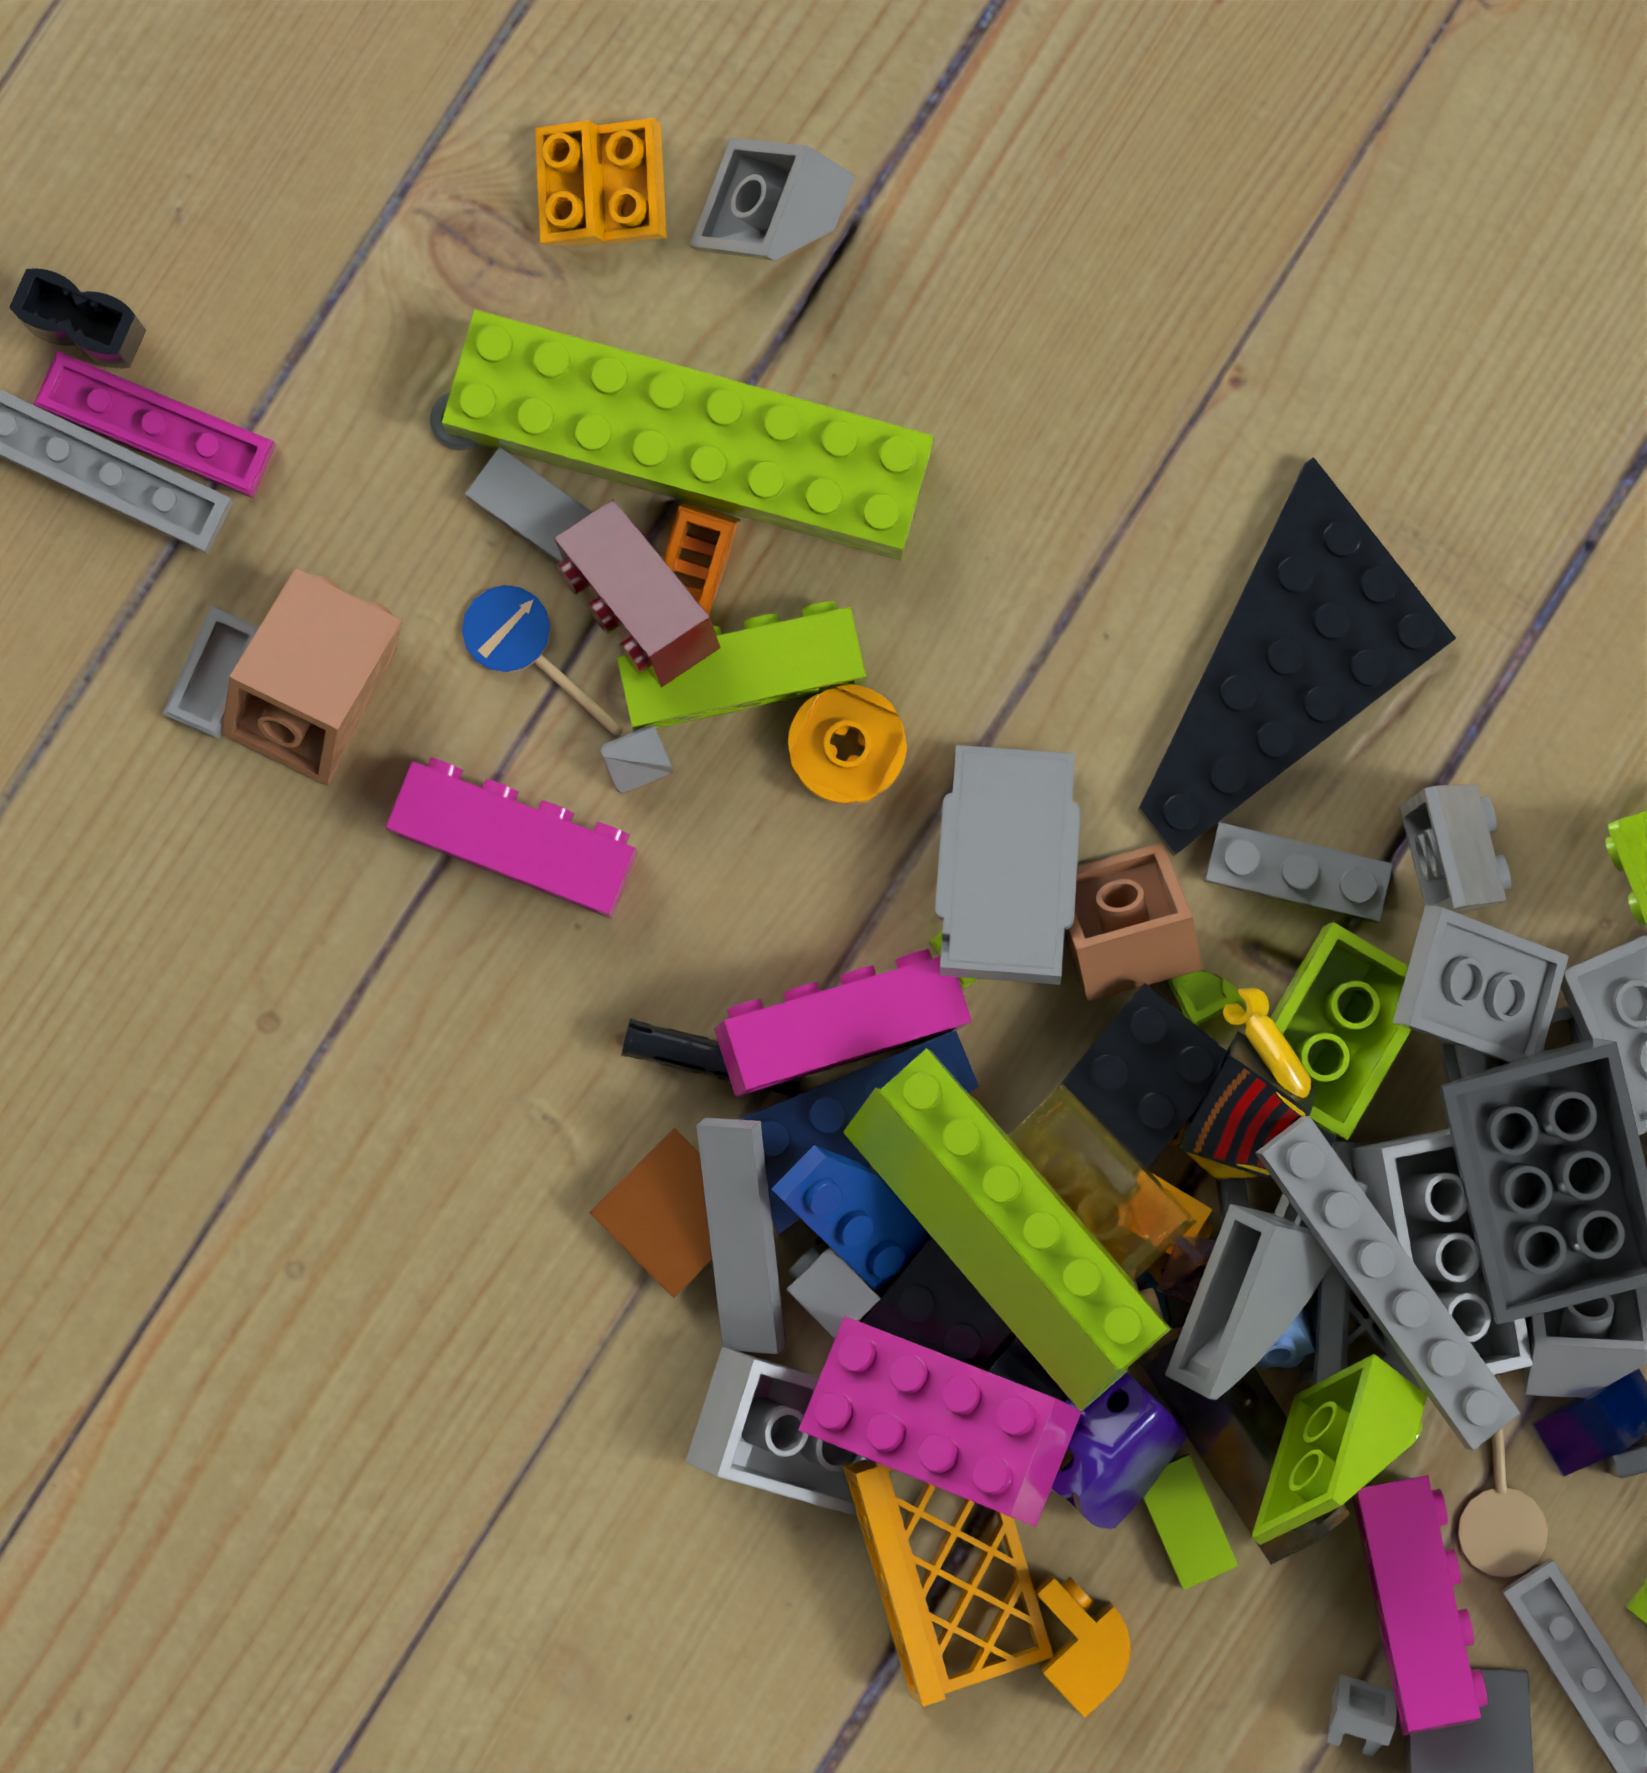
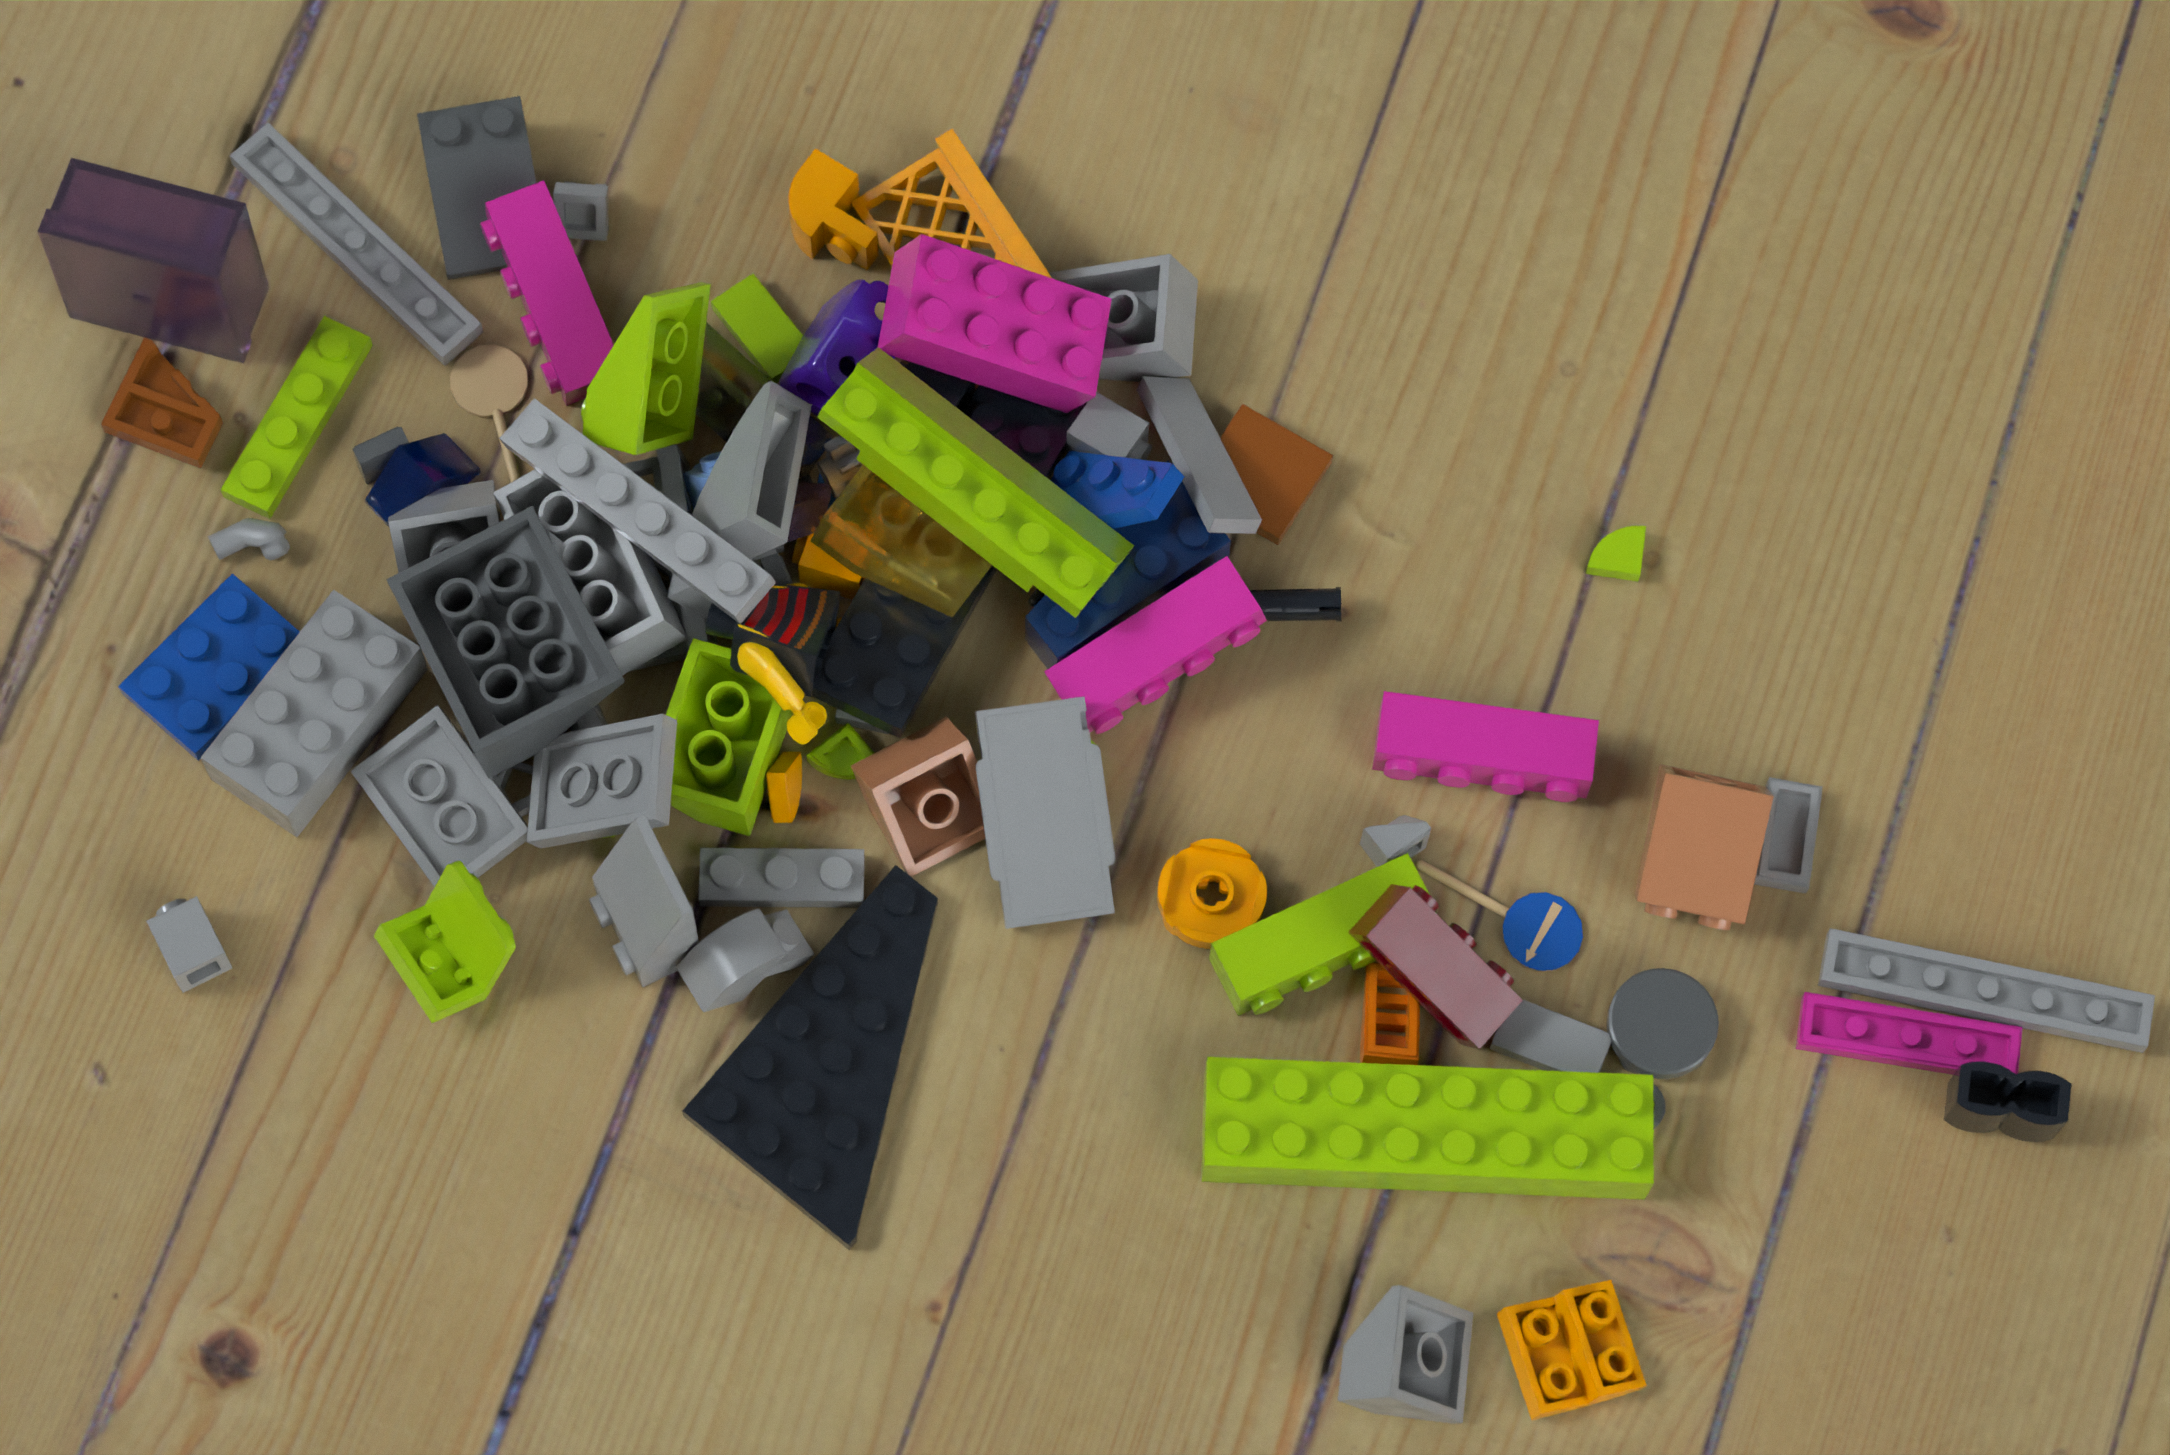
camera: 165 degrees right, 15 degrees down
(302, 1031) = (1619, 554): none -> lime tile
(410, 494) = (1662, 1023): none -> dark grey tile
(1276, 966) = (785, 786): none -> light orange tile
(1357, 782) = (740, 955): none -> light grey brick

